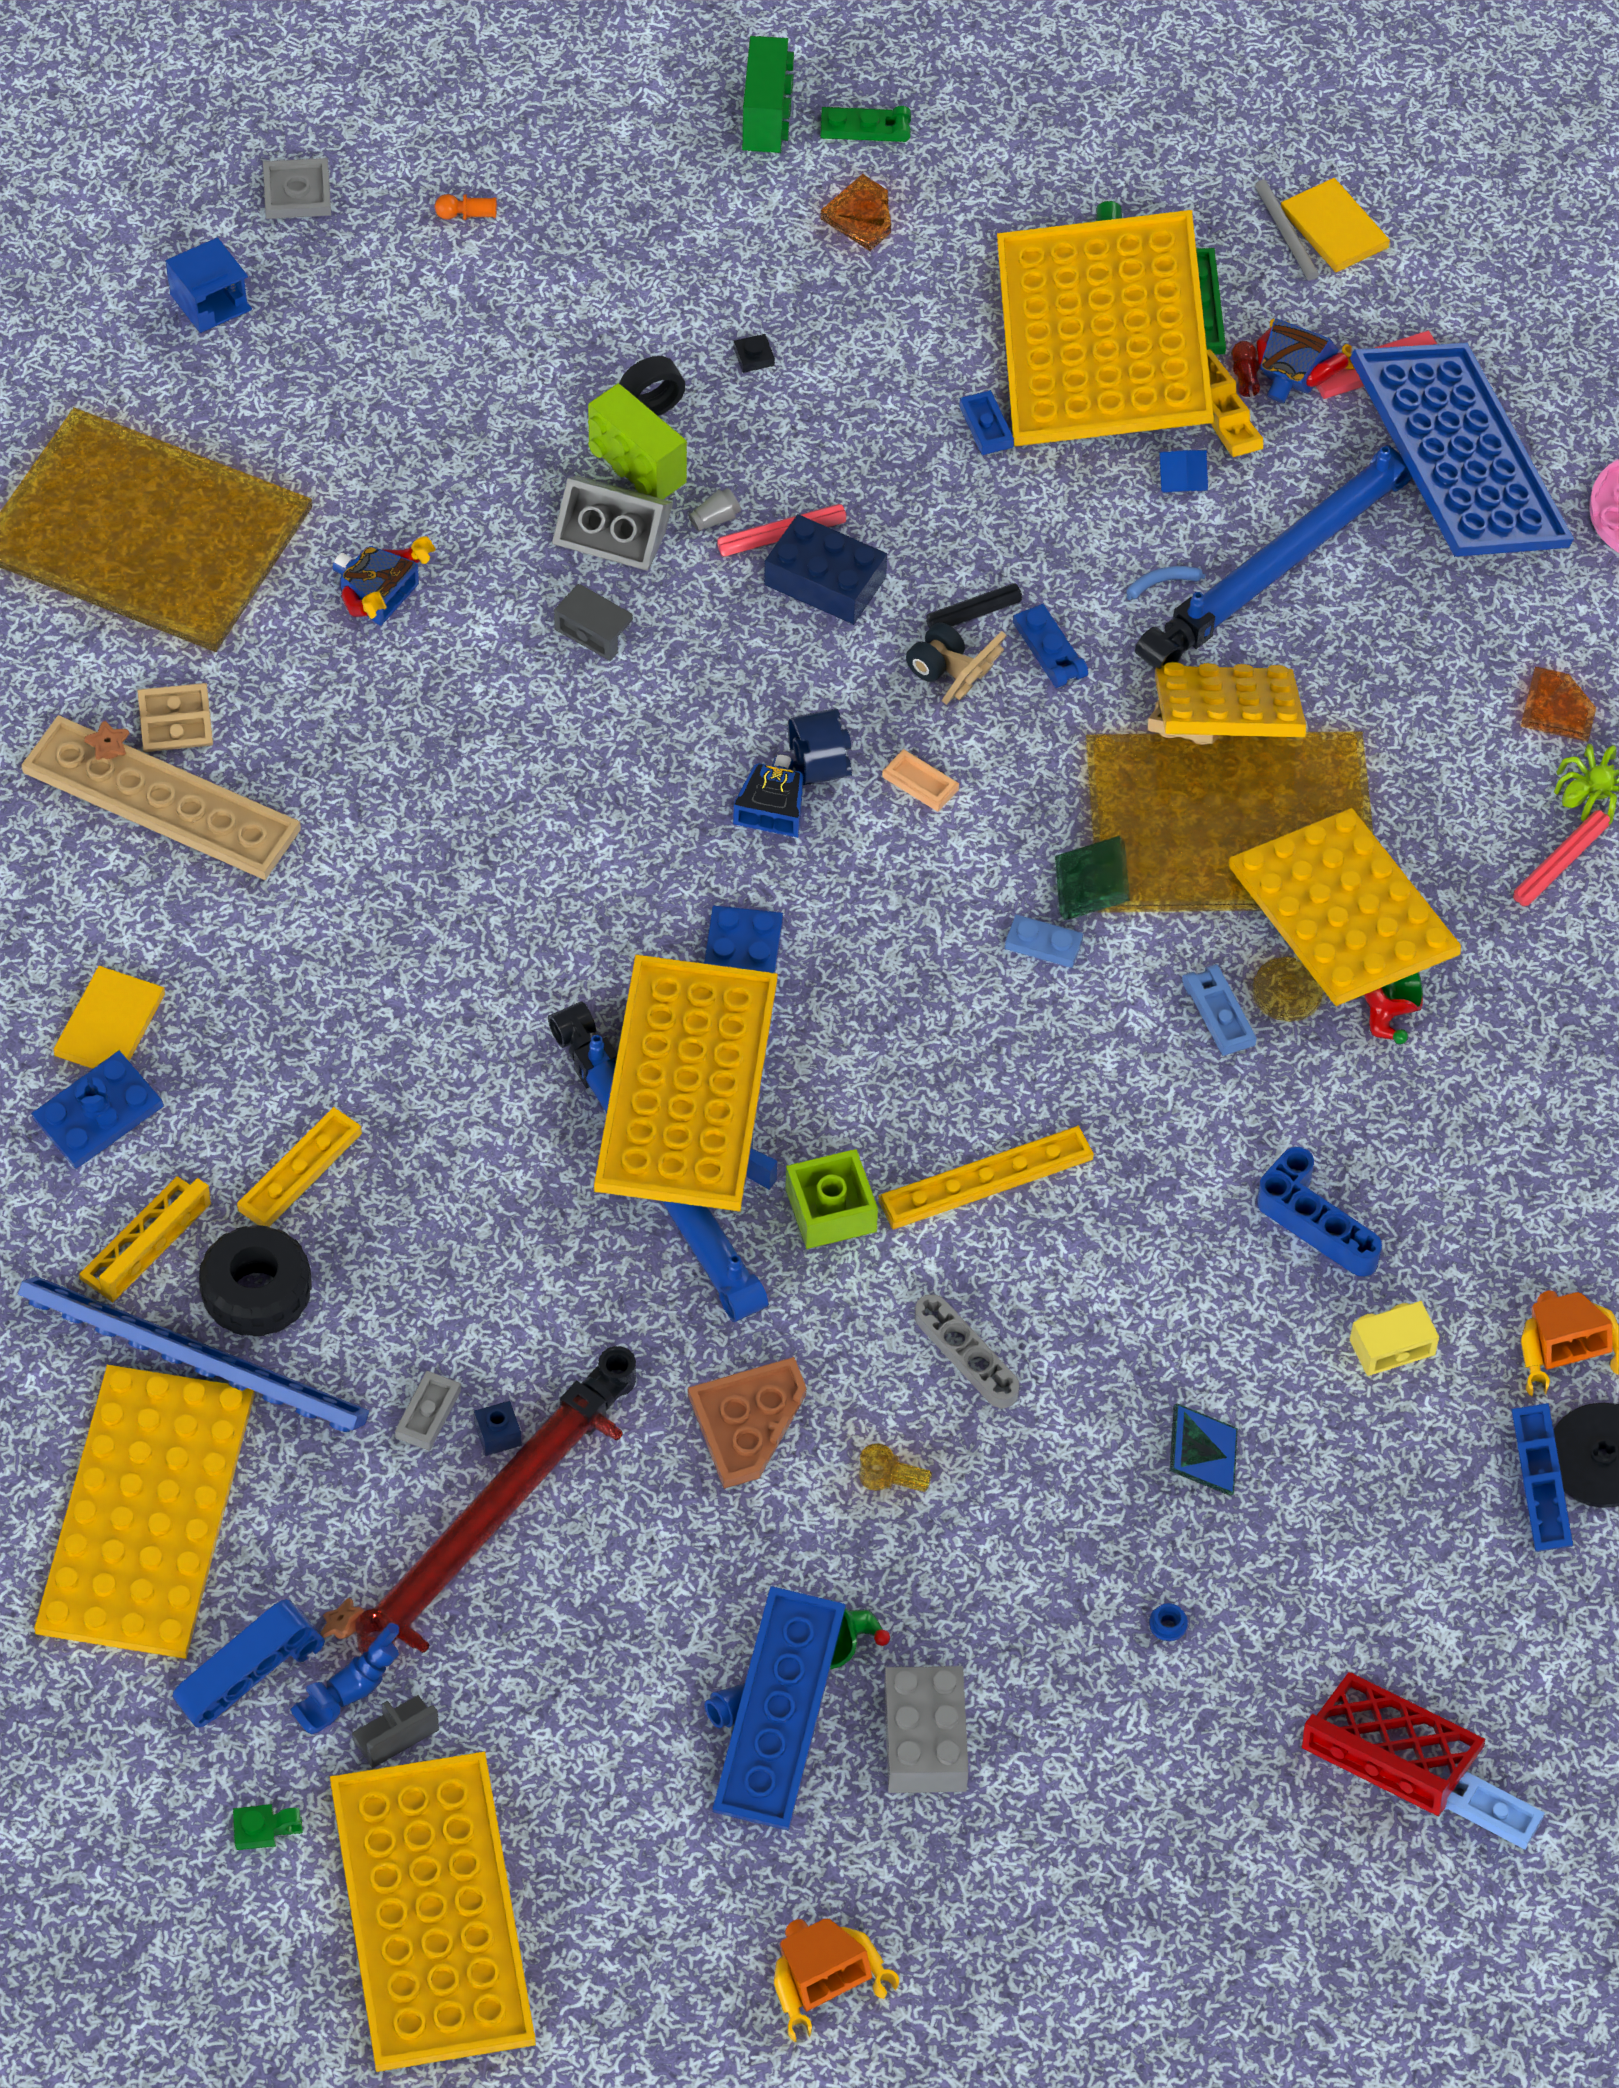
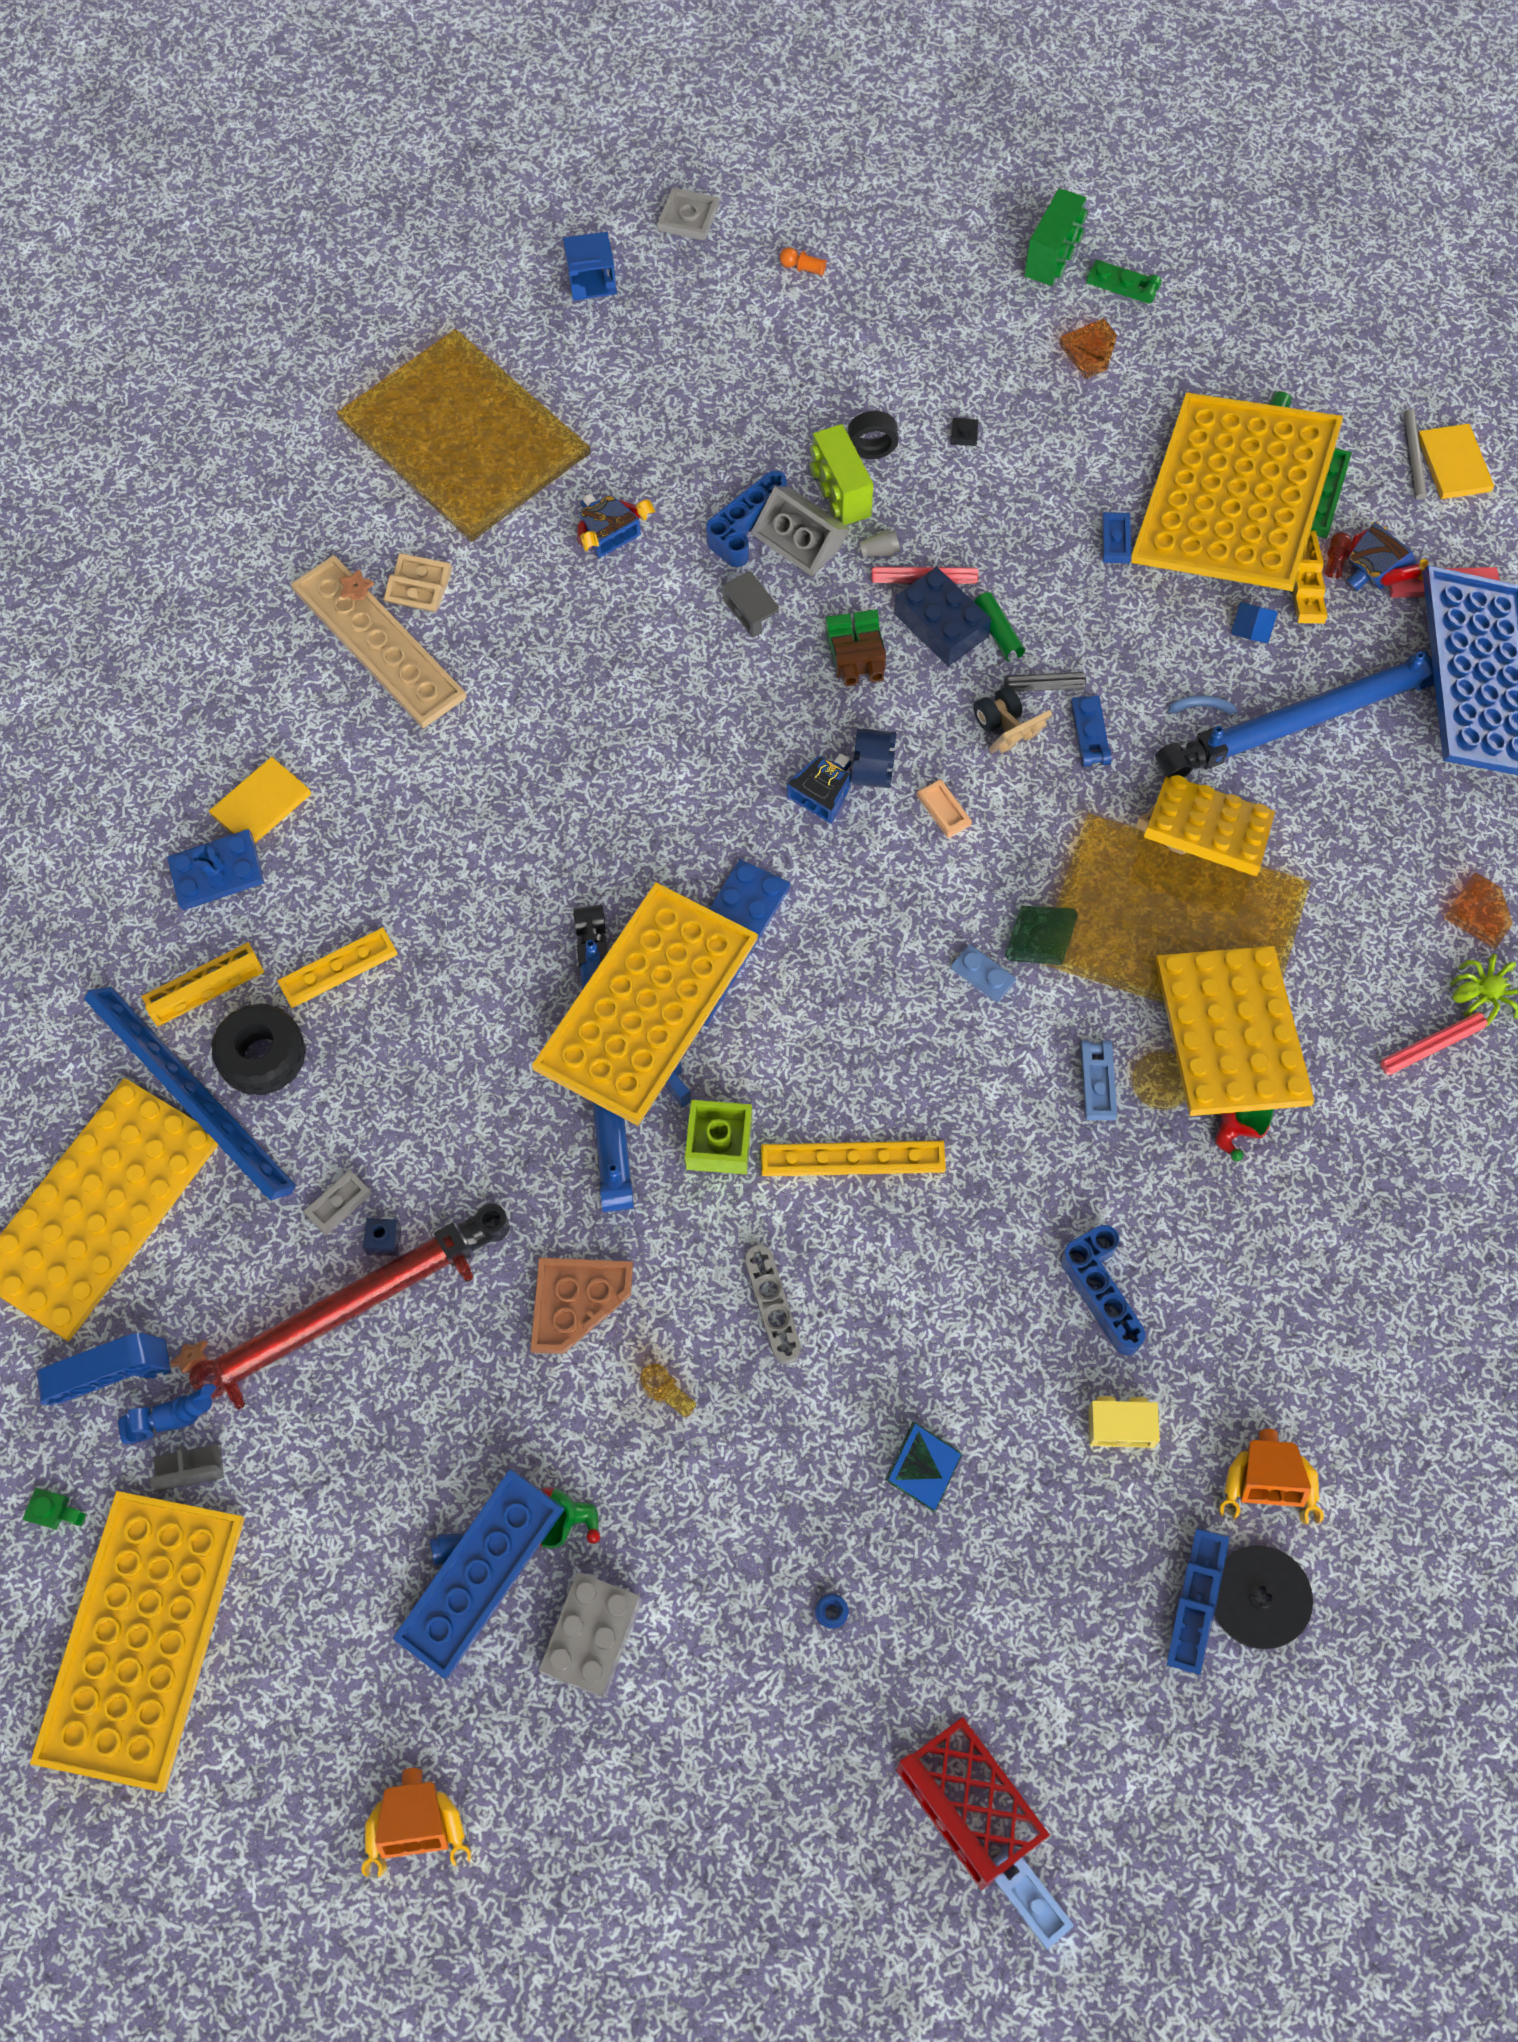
camera: 25 degrees right, 10 degrees up
(526, 545) = (728, 527): none -> blue beam
(740, 632) = (856, 655): none -> reddish brown hips
(899, 564) = (1000, 626): none -> green piece

